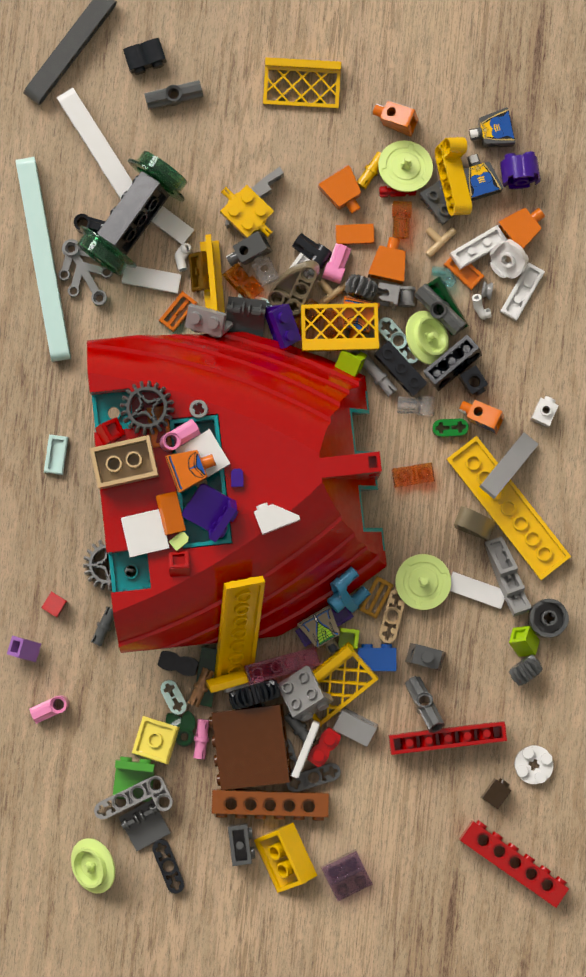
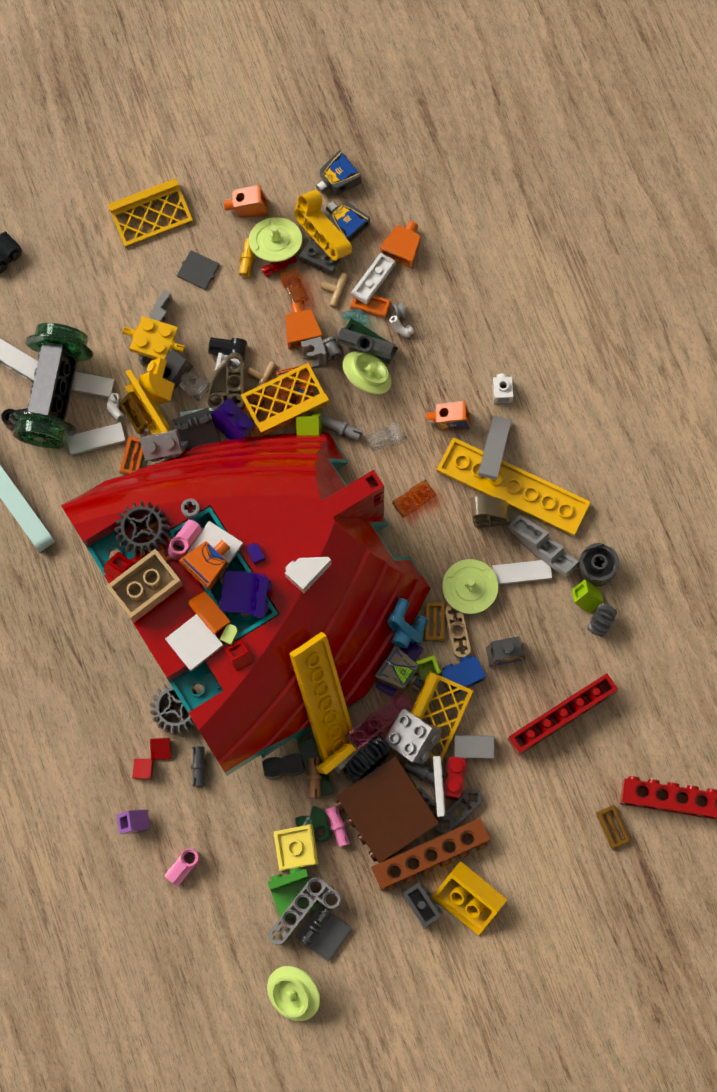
camera: 20 degrees left, 10 degrees down
(56, 454) = (81, 633): light aqua tile -> none
(78, 594) = (160, 748): none -> red slope
(82, 269) = (30, 460): light grey plant -> none
(160, 863) = (349, 954): black beam -> none
(161, 97) = (32, 281): dark grey piece -> none
(169, 700) = (291, 804): light aqua beam -> none
(226, 257) = (154, 385): none -> yellow brick
(241, 282) = (182, 405): clear orange slope -> none
(320, 159) = (198, 270): none -> dark grey piece
(336, 266) = (256, 353): bright pink piece -> none
(342, 190) = (229, 285): orange torso -> none
(346, 875) = (534, 886): slope -> none
(355, 234) = (259, 318): orange tile -> none
(361, 287) = (287, 357): dark grey gear -> none
(385, 333) = (339, 382): light aqua beam -> none
(400, 369) = (356, 411): black brick -> none
(428, 712) = (526, 693): dark grey piece -> none
(434, 859) = (606, 811): none -> pearl gold tile
(450, 432) = (424, 438): green beam -> none
(452, 362) = (400, 384): black brick -> none
(473, 372) = (425, 384): black brick -> none
(496, 792) = (632, 743): dark brown brick -> none
(517, 255) = (396, 280): white plate -> none
(520, 170) = (377, 196): dark purple brick -> none
(522, 291) = (430, 298): white tile -> none
(528, 755) = (661, 709): white plate -> none

